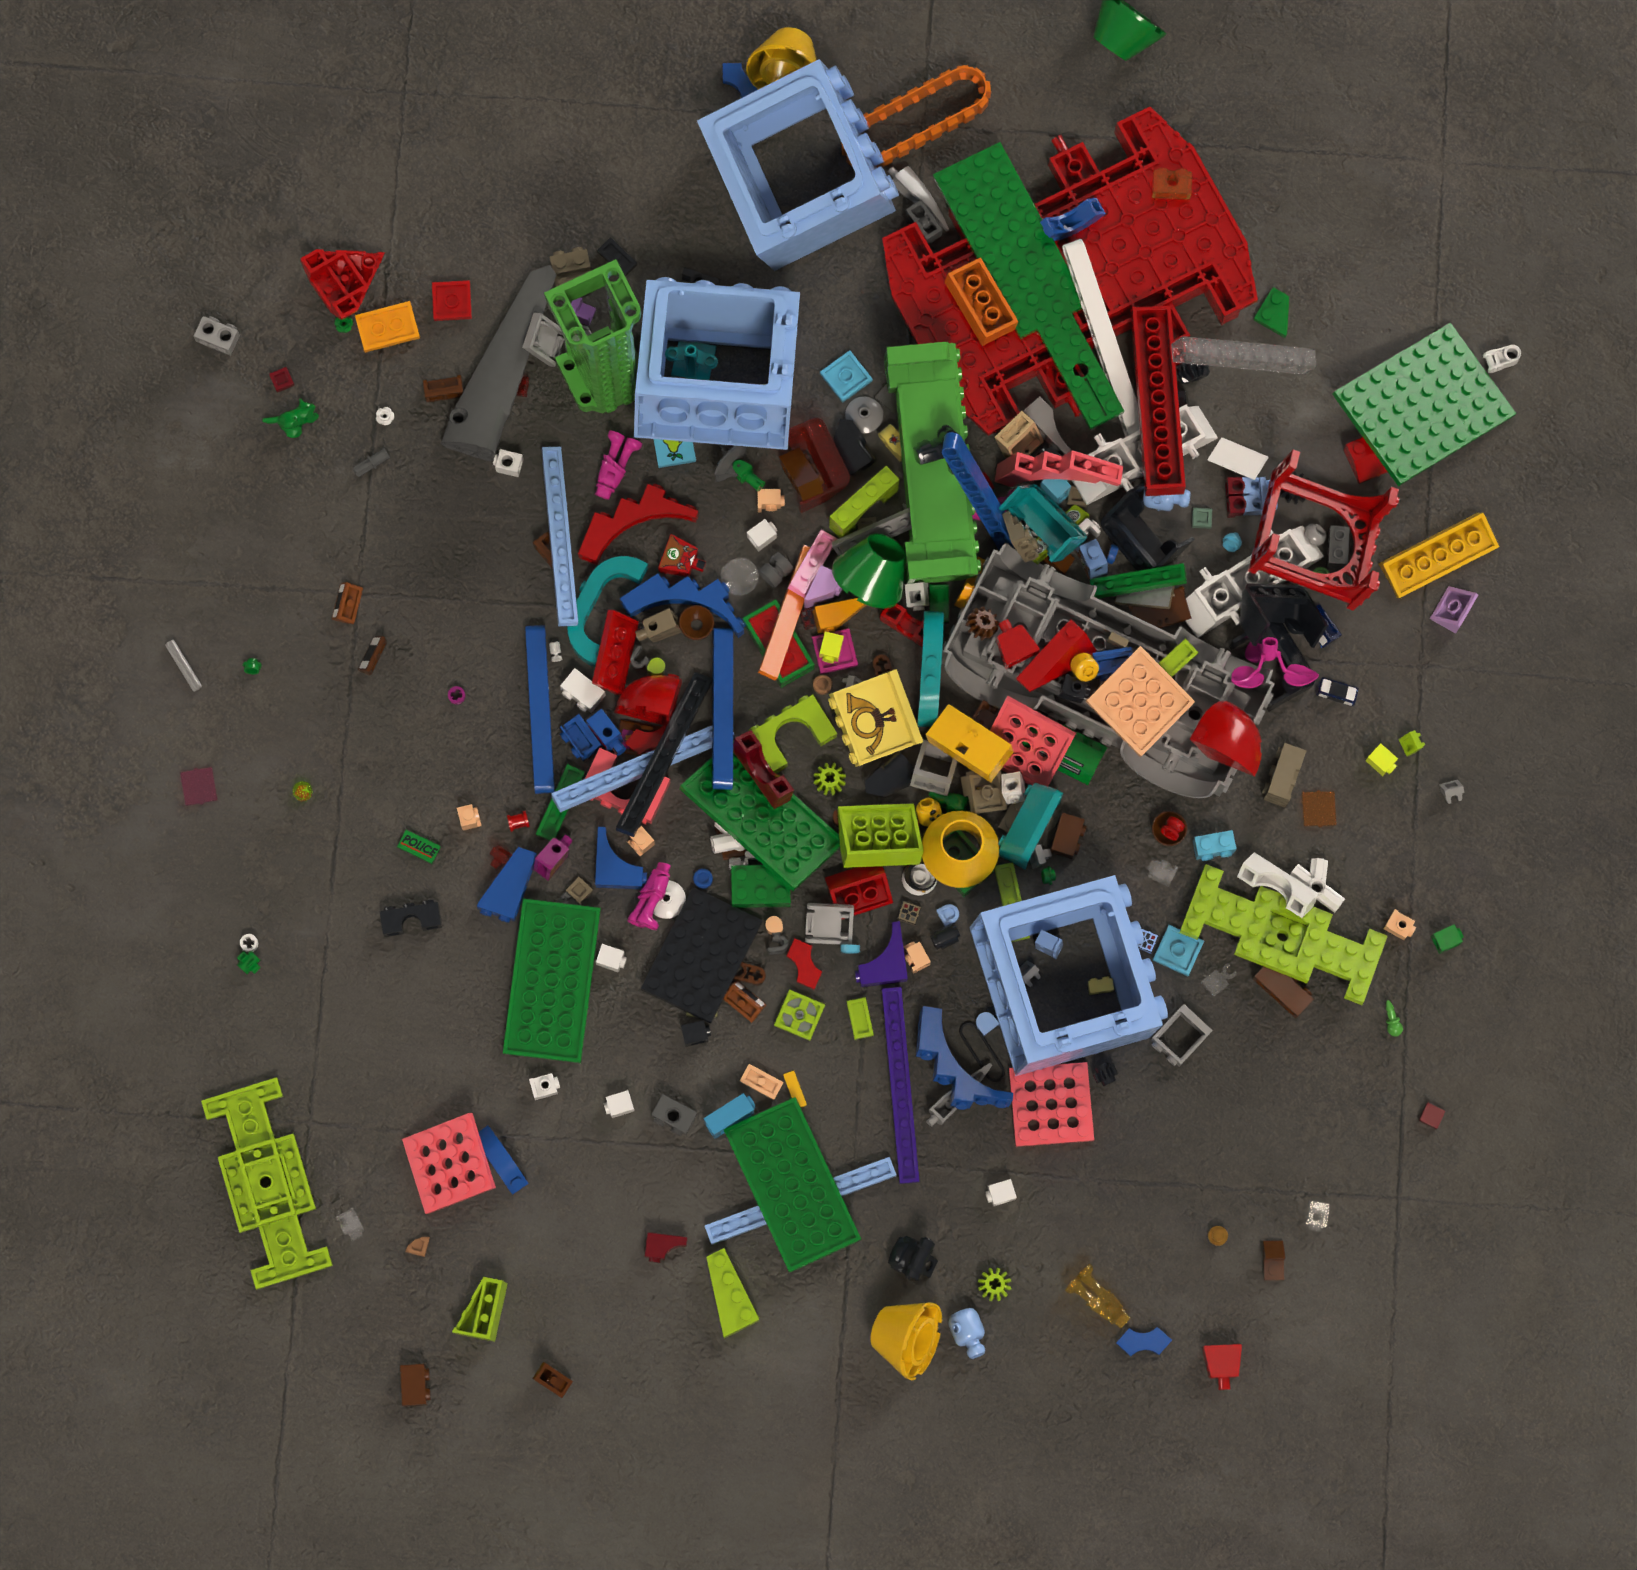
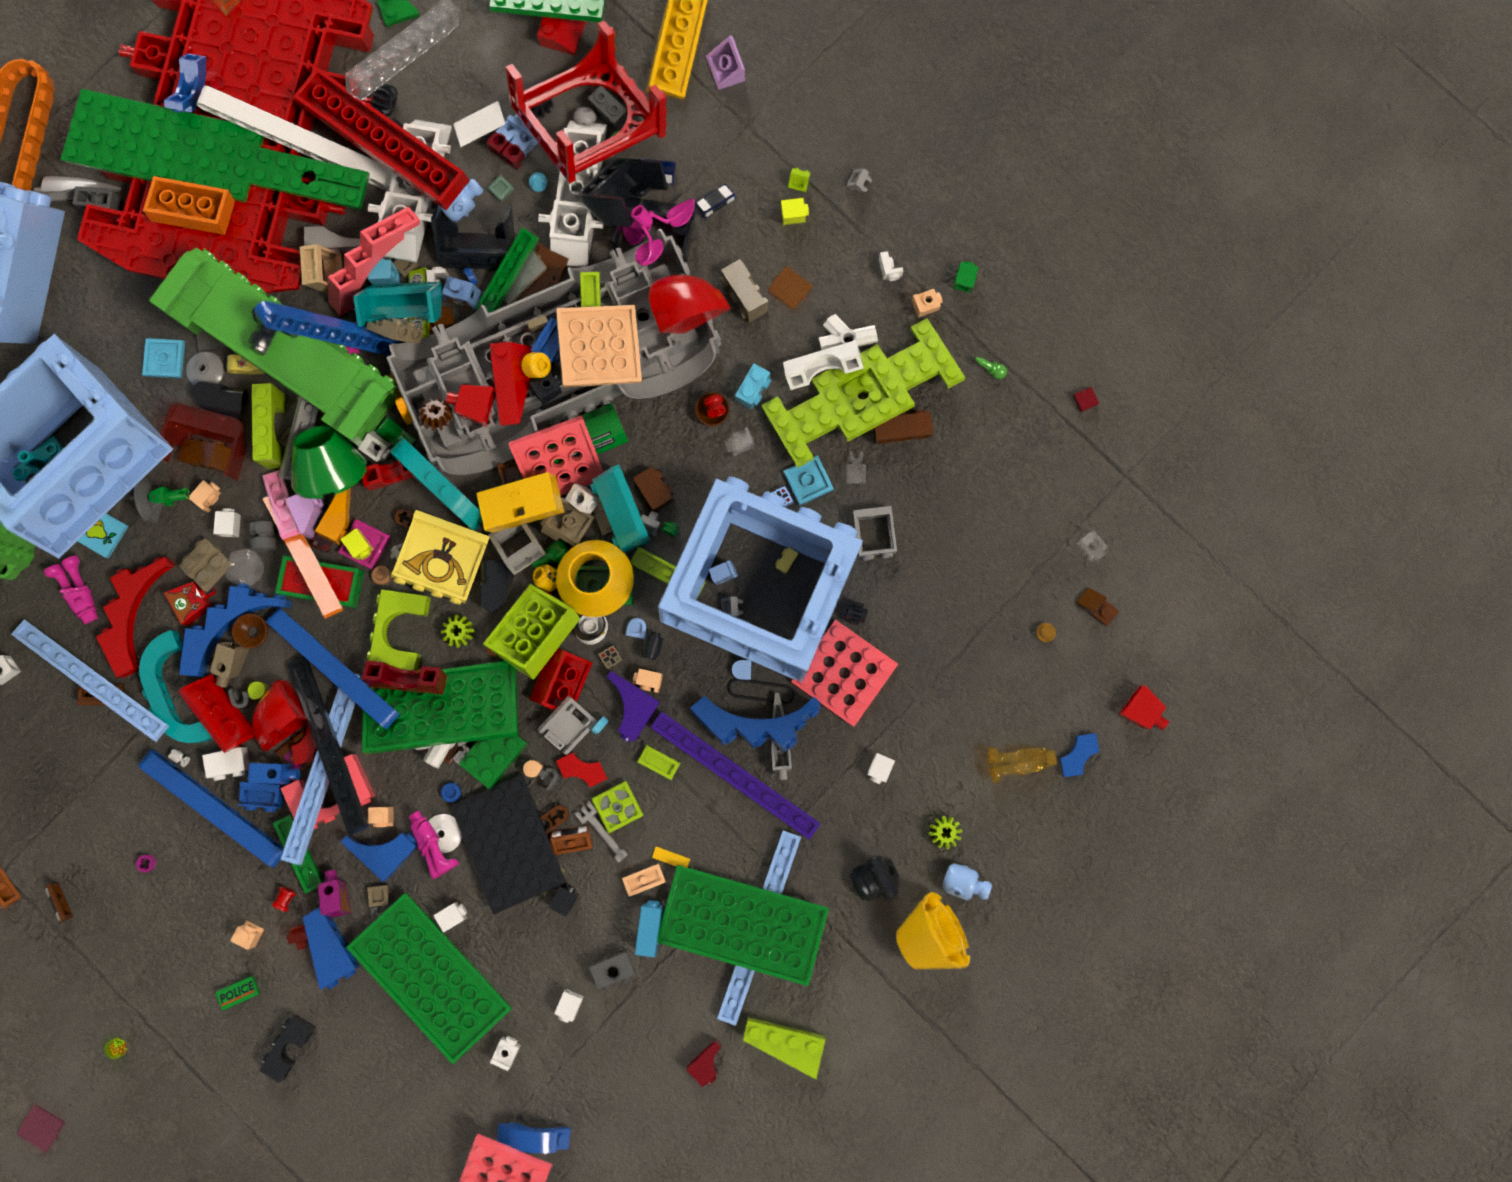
camera: 45 degrees left, 5 degrees up
(718, 545) = (205, 564): none -> dark tan plate
(765, 1047) = (589, 816): none -> light grey hinge
(1402, 868) = (886, 265): none -> white bracket

